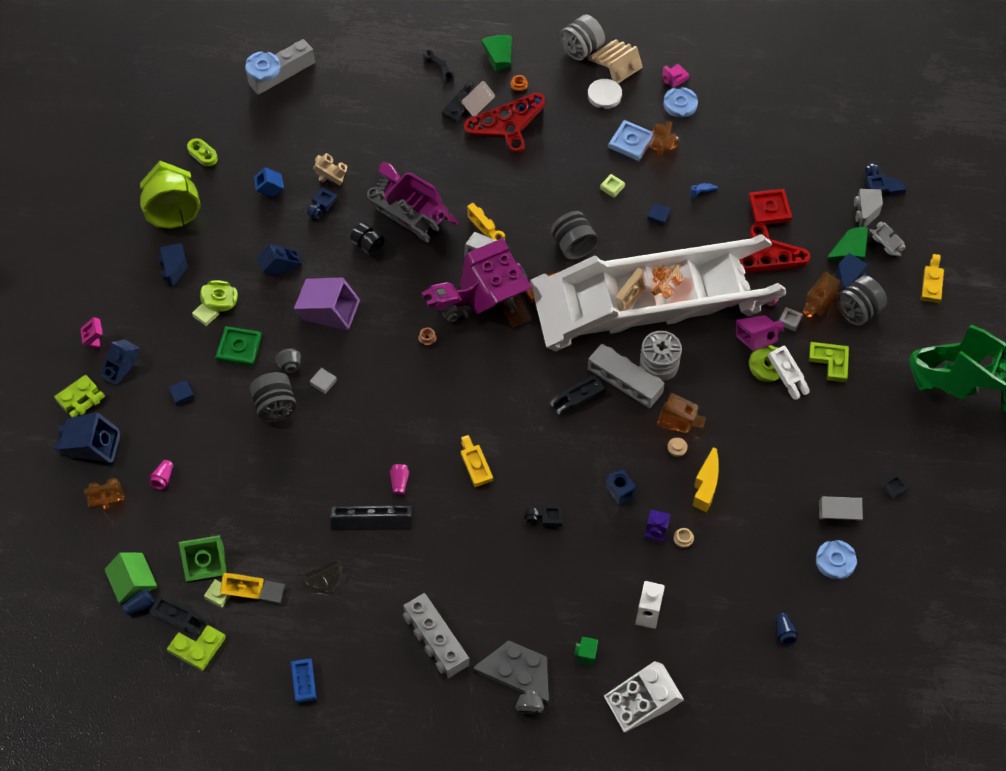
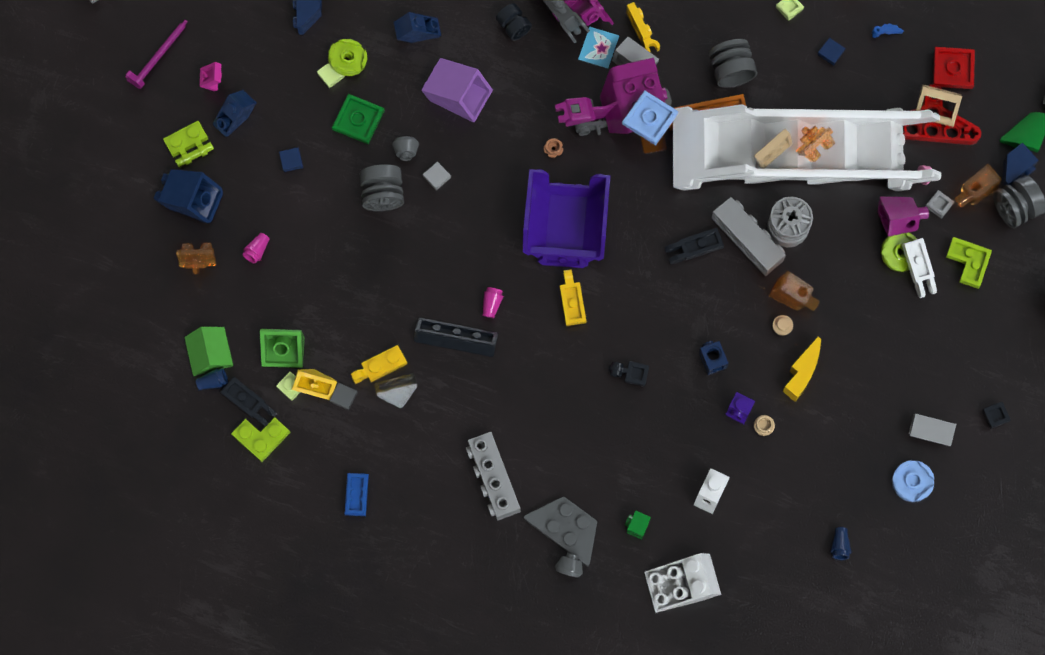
camera: 15 degrees right, 15 degrees up
(21, 351) = (137, 80): none -> magenta piece
(303, 557) = (380, 365): none -> yellow plate
(449, 248) = (598, 47): none -> medium azure sticker
(454, 395) = (565, 221): none -> dark purple windscreen
(511, 287) = (650, 117): none -> light blue tile
(768, 227) = (943, 95): none -> tan tile

